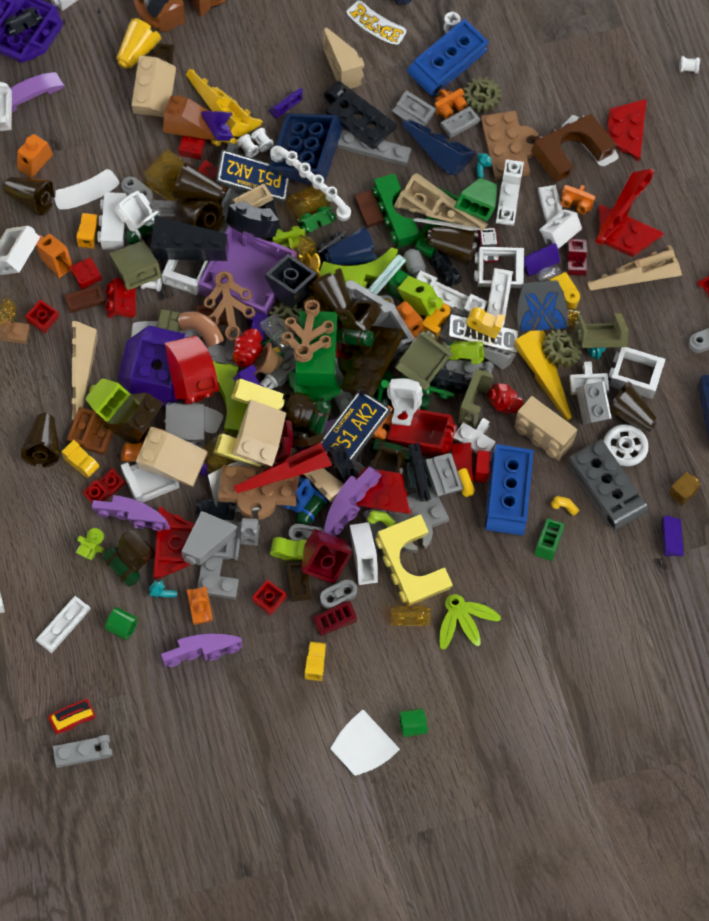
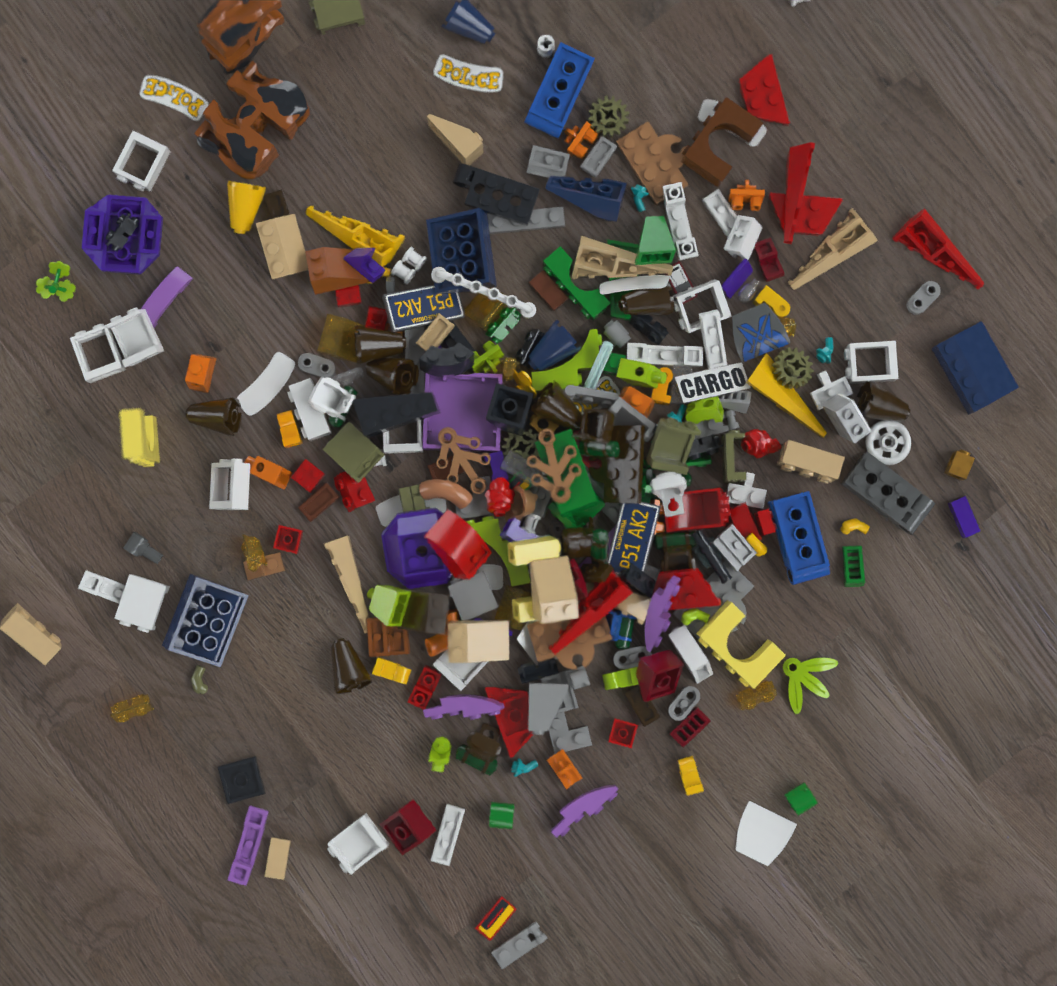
camera: 20 degrees left, 20 degrees up
(29, 599) = (408, 827): none -> dark red slope
(286, 103) = (418, 206): dark purple slope -> none
(485, 322) = (711, 372): yellow leg -> none
(602, 335) = (826, 337): olive panel -> none

